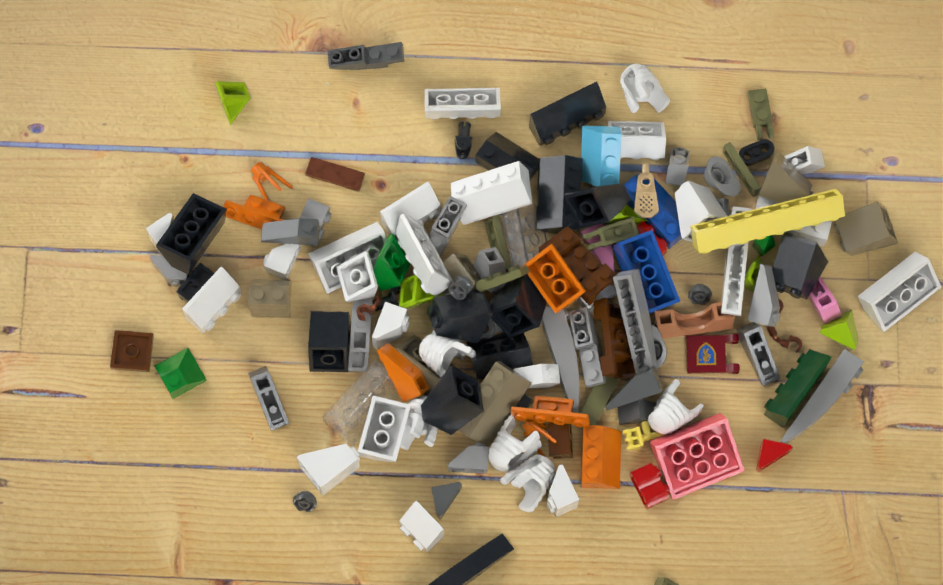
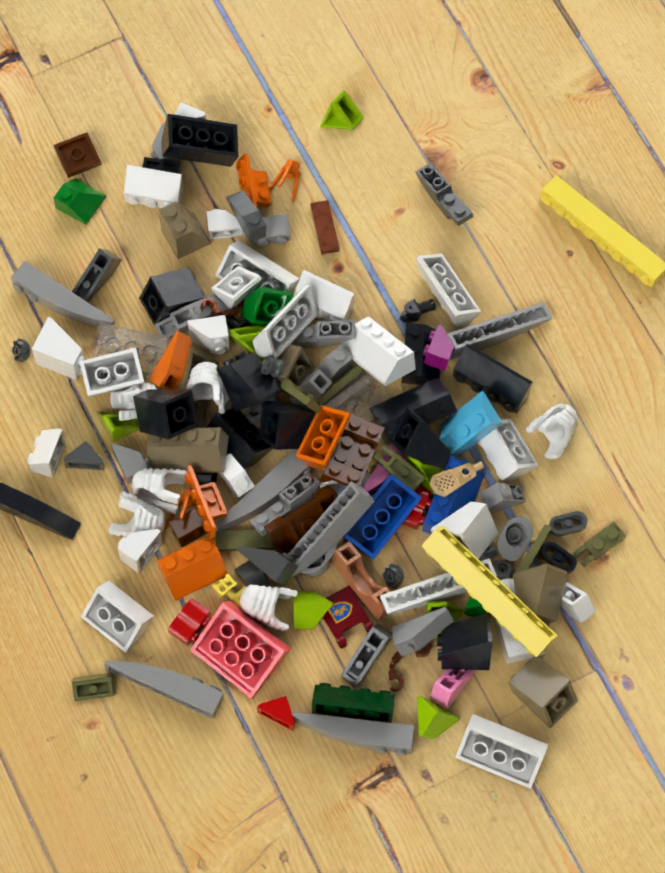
camera: 60 degrees right, 5 degrees down
(270, 442) = (56, 297): none -> light grey slope
(423, 454) = (116, 428): none -> lime slope
(476, 236) = (336, 363): none -> light grey slope
(518, 140) = (439, 350): none -> magenta slope
(522, 86) = (498, 329): none -> light grey slope
(610, 545) = (117, 616): none -> white slope
(692, 379) = (309, 609): none -> lime slope
(701, 529) = (172, 685): none -> light grey slope
(730, 129) = (566, 523): none -> dark grey plate
(742, 198) = (506, 566): none -> dark grey plate

